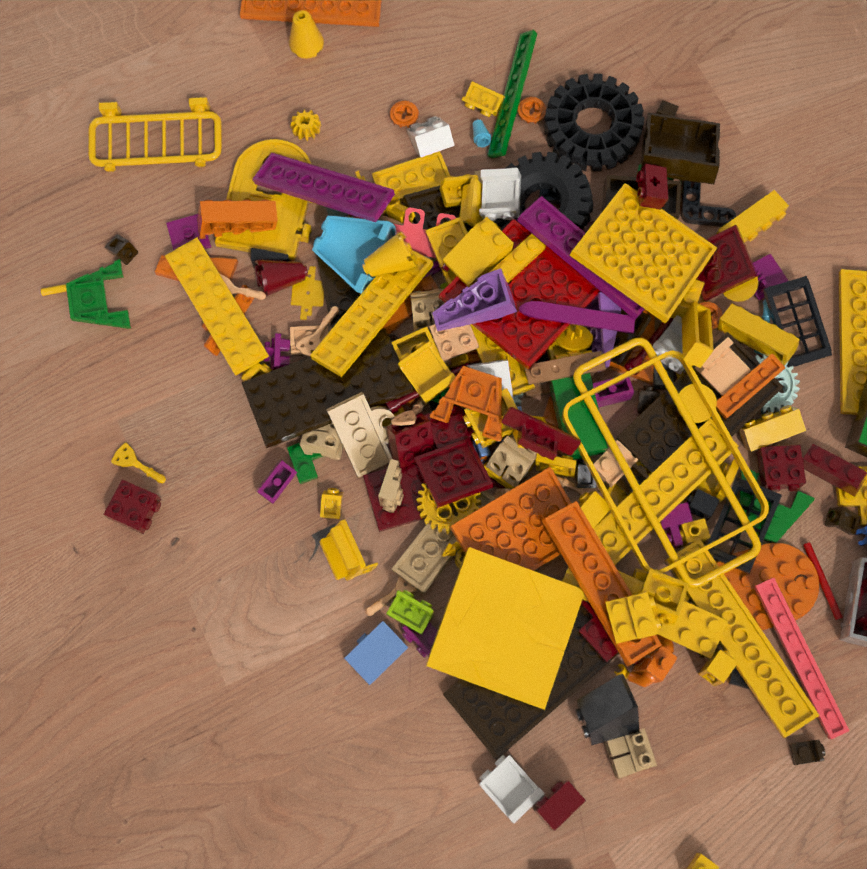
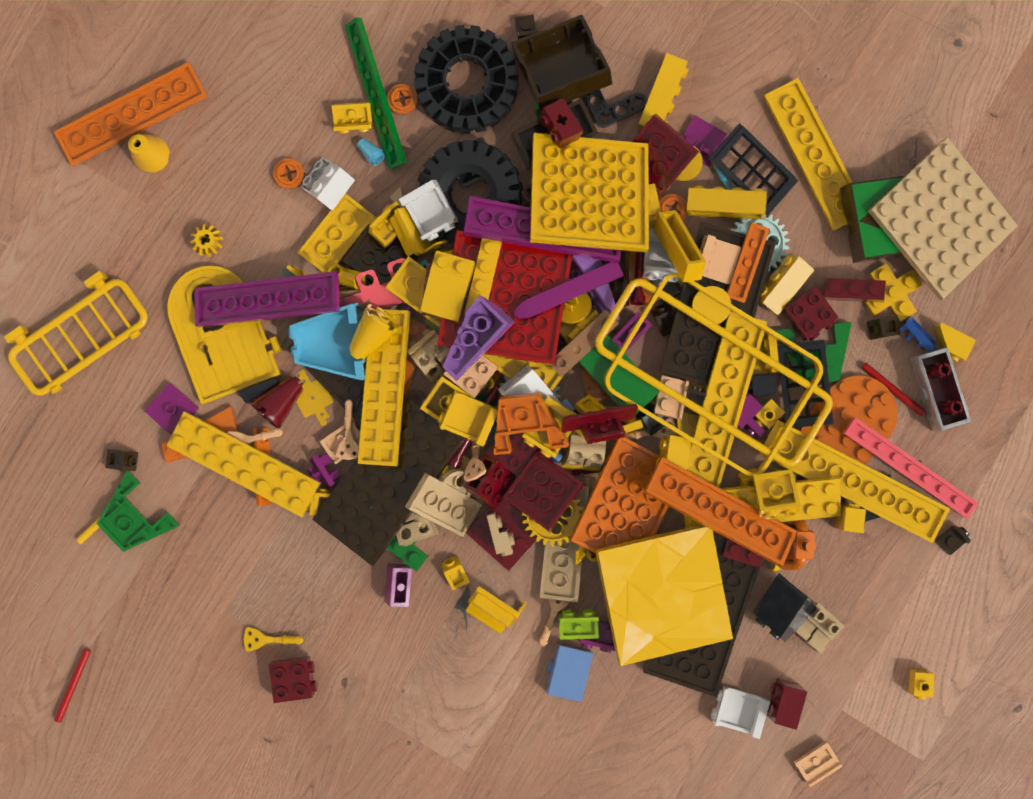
camera: 35 degrees left, 15 degrees up
(235, 217) = (206, 372): orange wedge -> none
(633, 617) = (764, 529): yellow plate -> none

